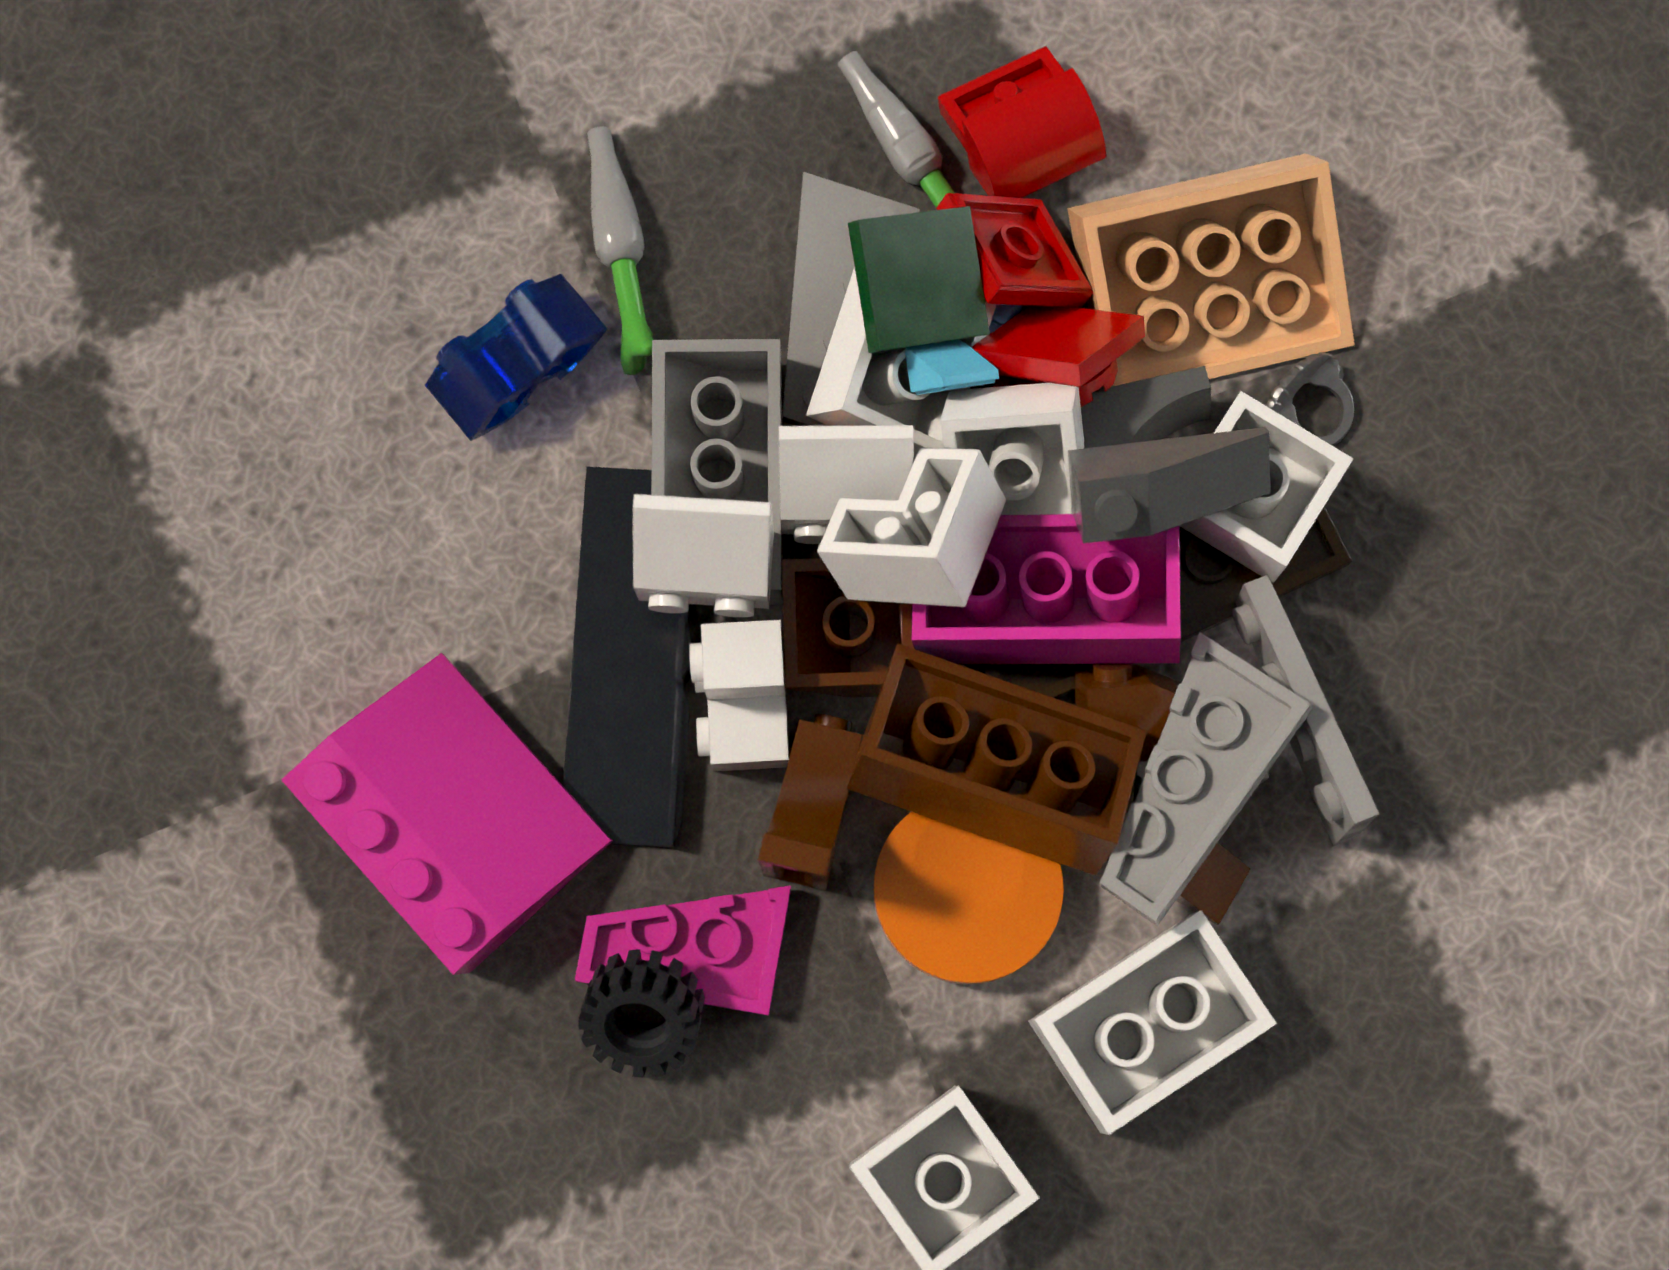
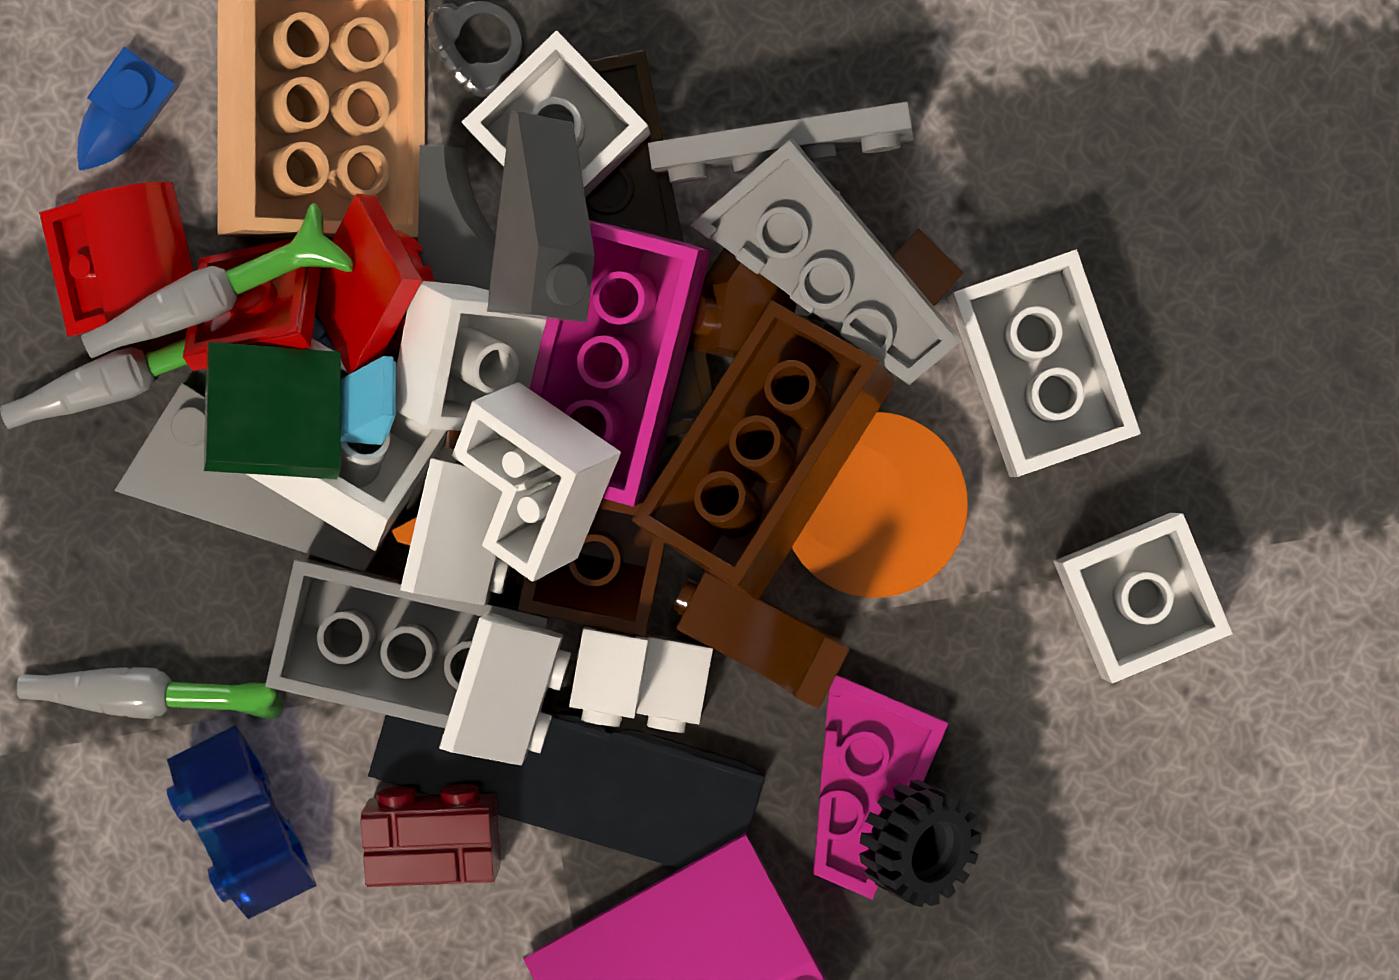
camera: 80 degrees left, 10 degrees up
(541, 535) = (430, 837): none -> dark red brick
(1017, 207) = (213, 290): none -> light grey piece
(1162, 101) = (121, 109): none -> blue plate

